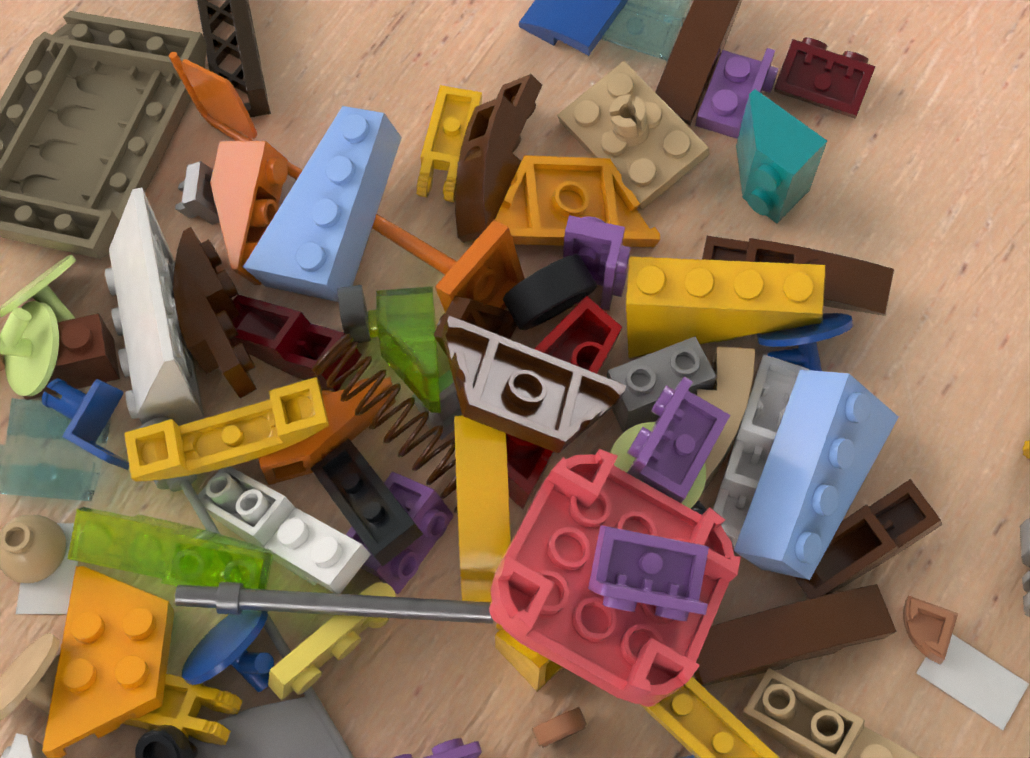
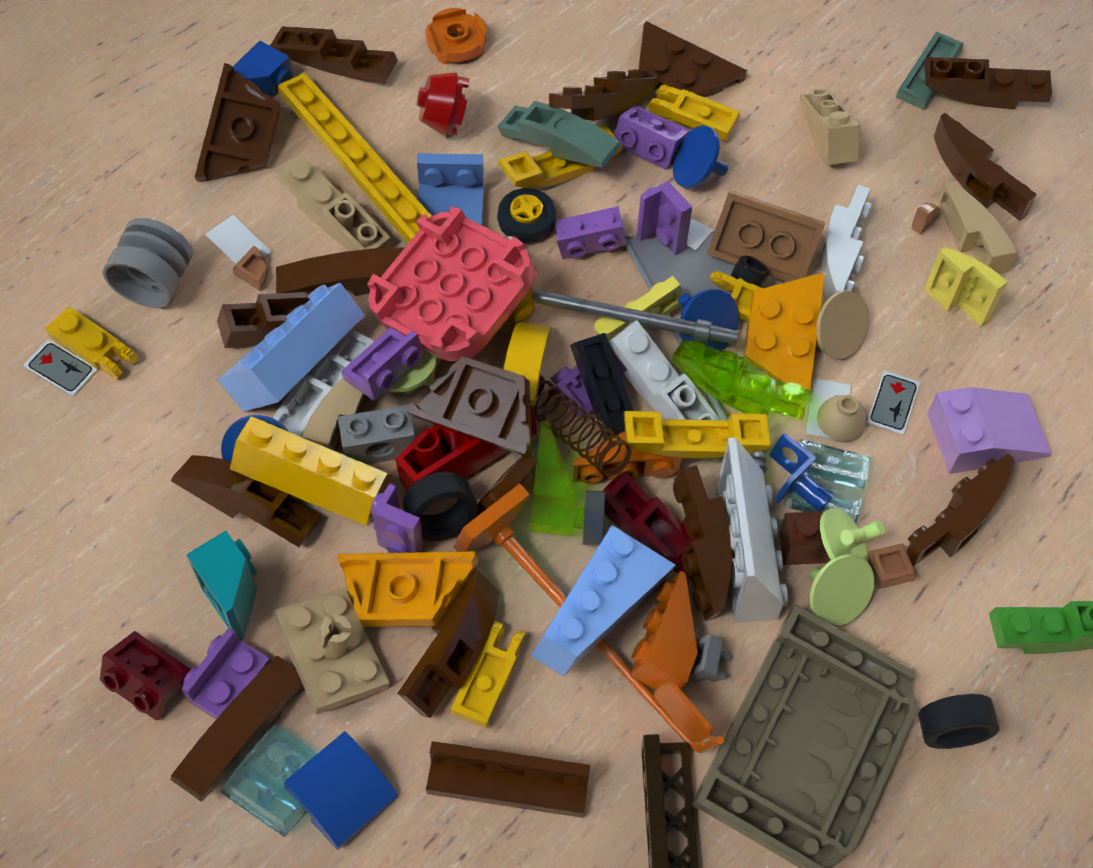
camera: 170 degrees left, 5 degrees down
(405, 49) = (508, 779): none -> reddish brown fence
(648, 571) = (432, 265): medium lavender bracket -> none

